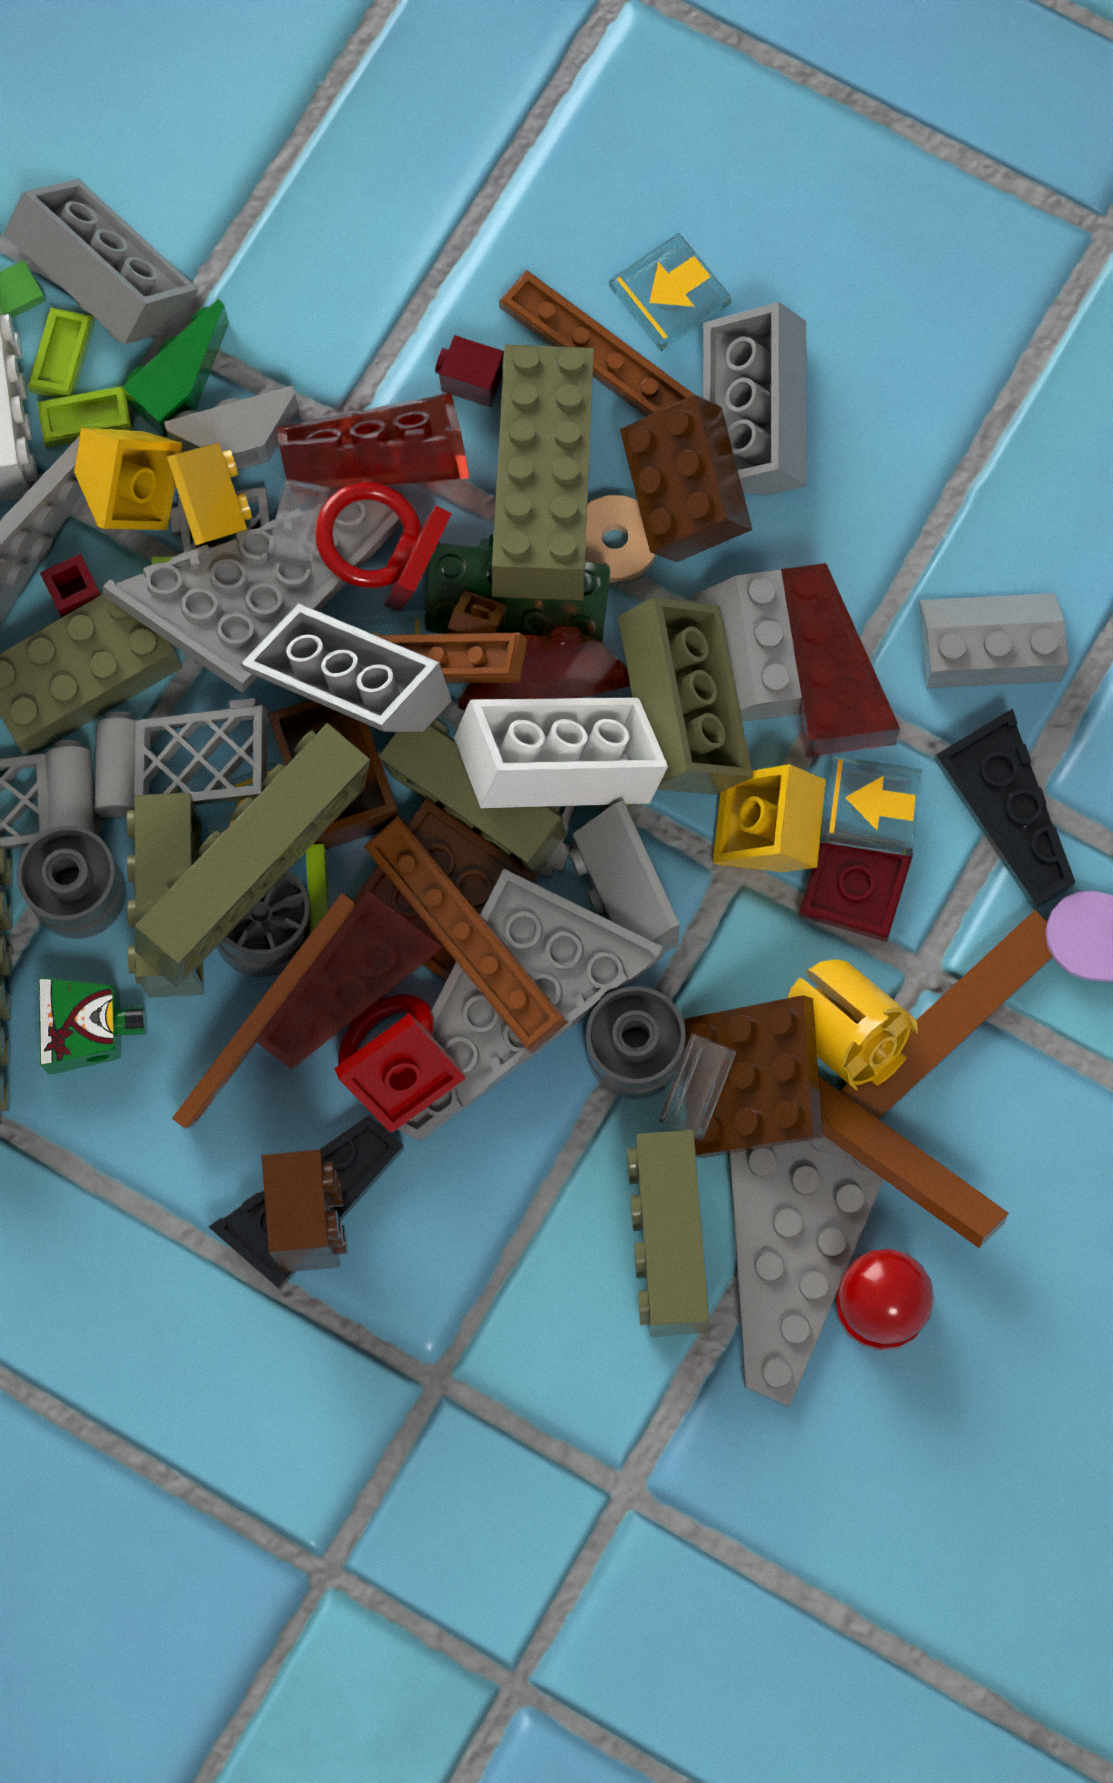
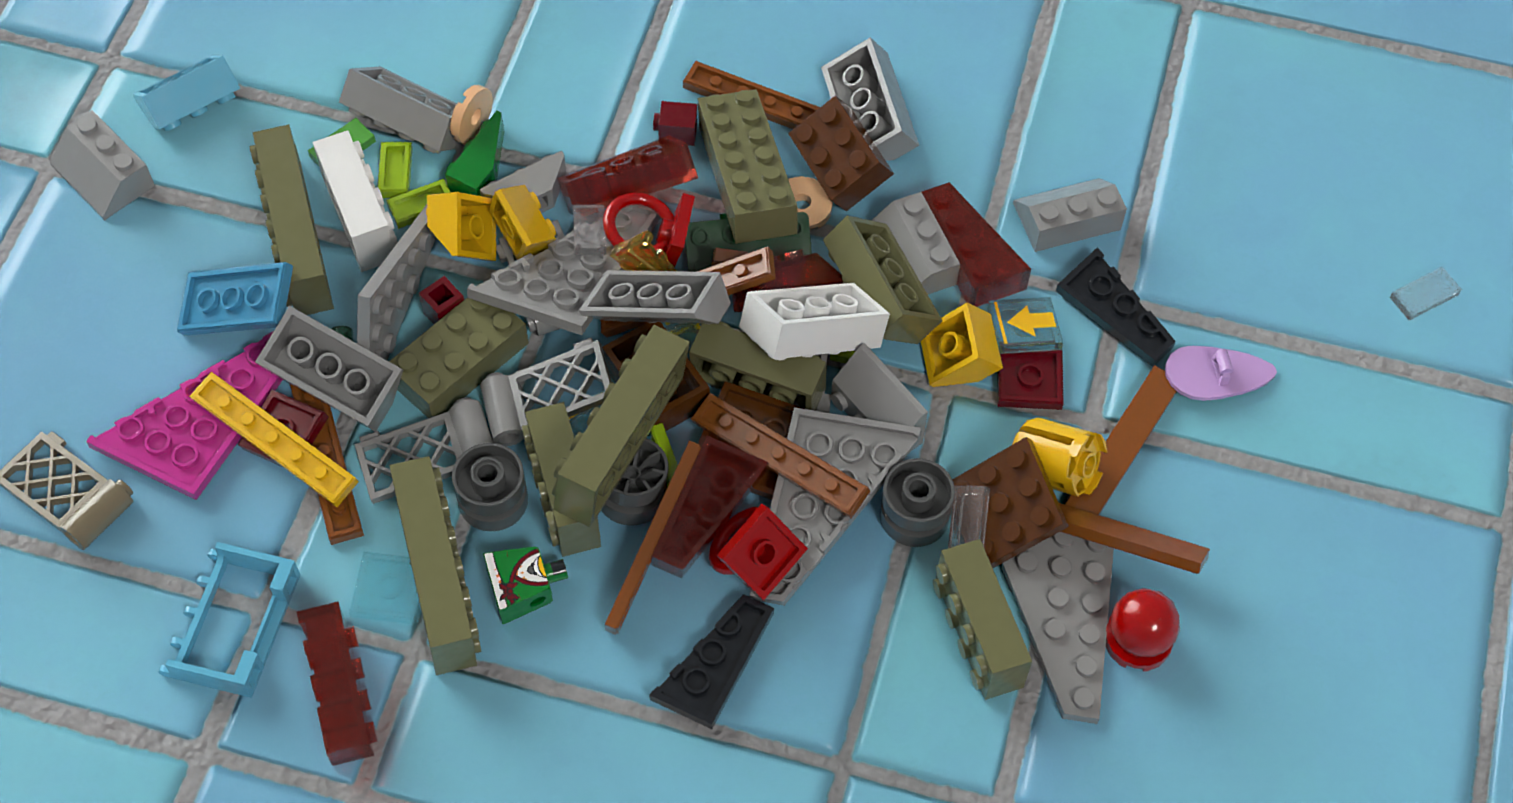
camera: 20 degrees left, 15 degrees down
(190, 290) = (471, 113): none -> light nougat tile
(302, 1211) = (722, 653): reddish brown brick -> none
(345, 589) = (640, 255): none -> clear yellow wing
(670, 291) = (792, 56): clear light blue tile -> none

